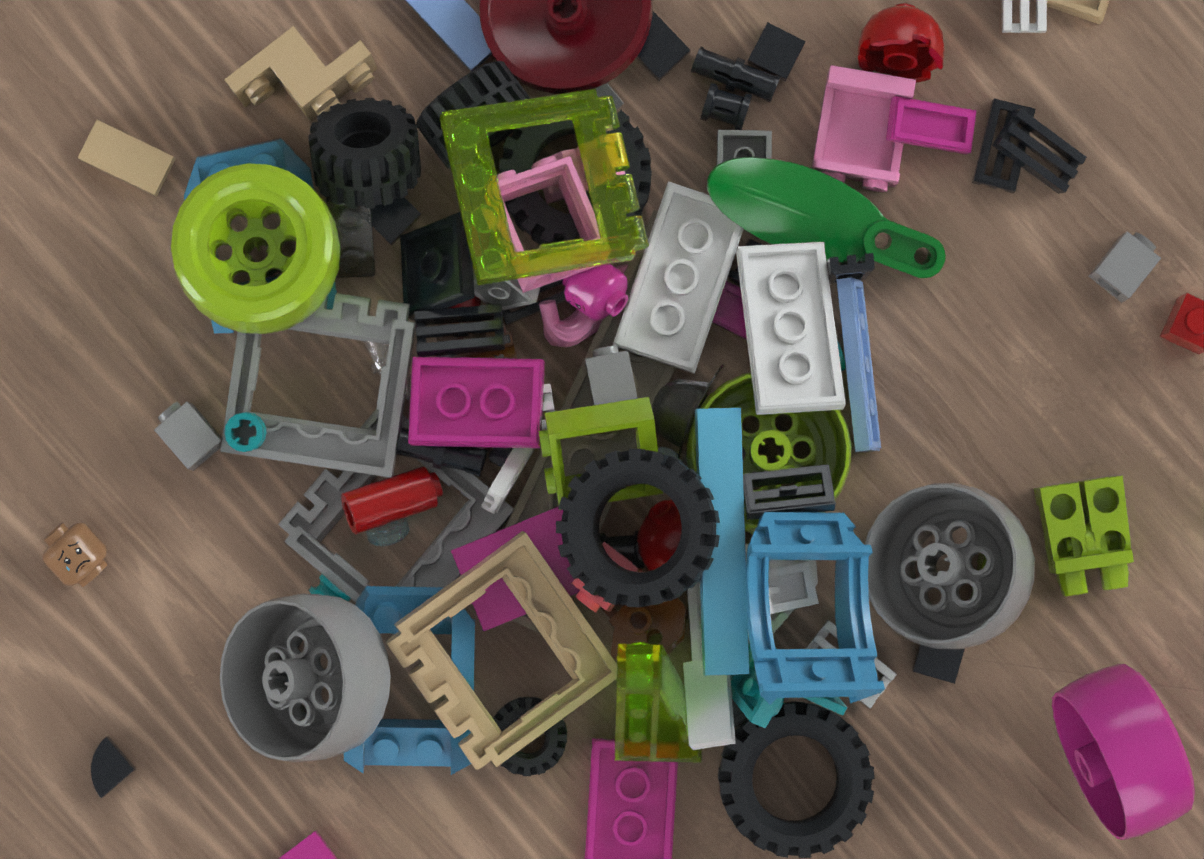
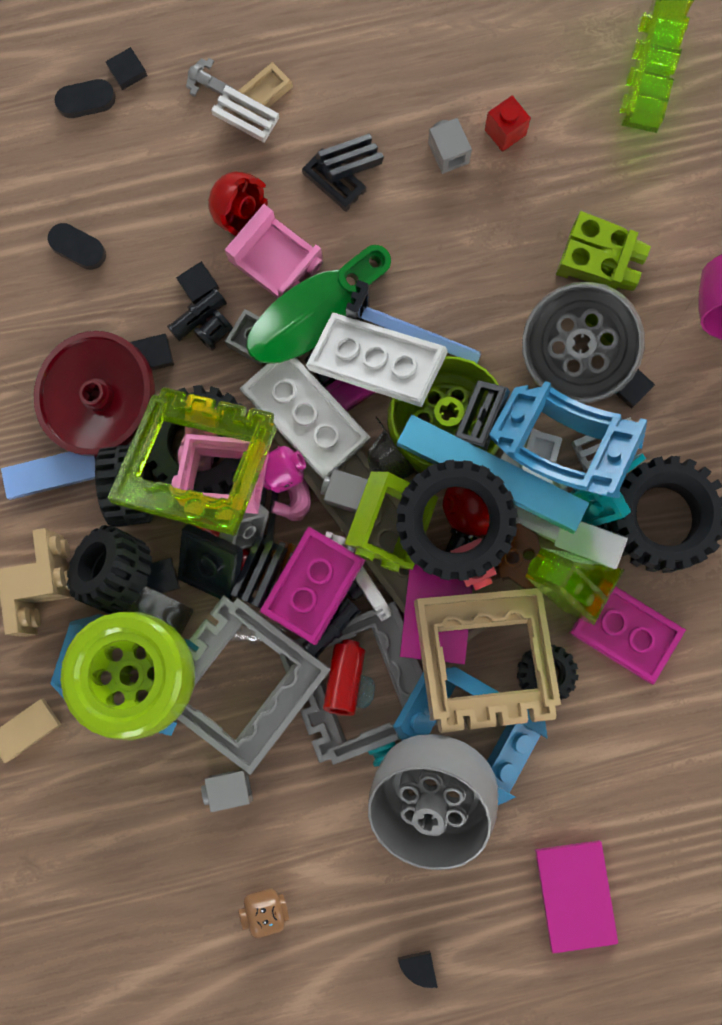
camera: 55 degrees left, 5 degrees down
(254, 441) = (236, 753): teal bush -> none
(931, 125) = (296, 213): dark pink tile -> none

